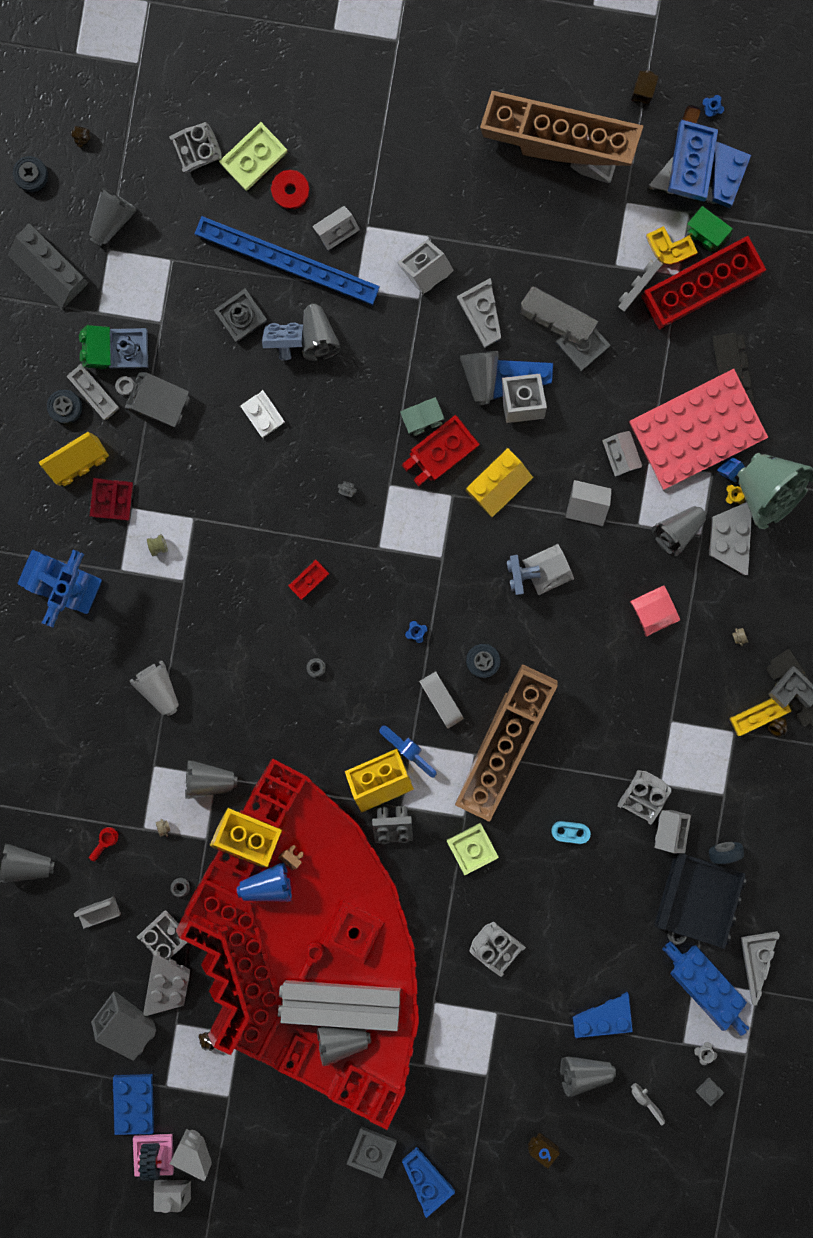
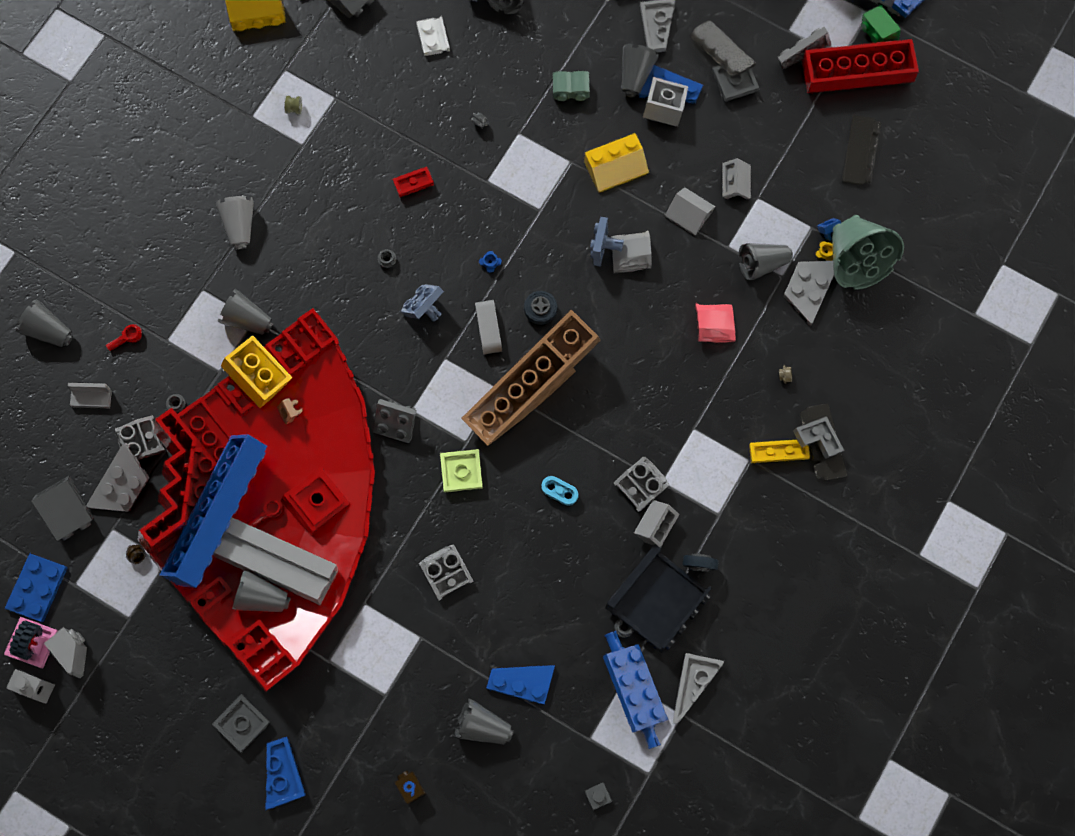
camera: 20 degrees right, 15 degrees down
(59, 582) = (191, 100): blue plate -> none
(111, 499) = (270, 55): dark red slope -> none
(162, 827) = (185, 343): dark tan plate -> none
(267, 885) = (258, 423): blue cone -> none
(267, 987) = (213, 511): none -> blue brick
(370, 703) = (422, 303): none -> sand blue plate
(379, 780) = (400, 376): yellow slope -> none
(408, 749) = (441, 360): blue piece -> none
(441, 450) = (574, 120): red tile -> none
(641, 1096) = (528, 772): light grey piece -> none
(670, 252) = (838, 33): yellow plate -> none
(698, 429) = (812, 185): coral plate -> none
(711, 1055) = (604, 760): light grey plate -> none
(778, 726) = (792, 467): dark brown plate -> none

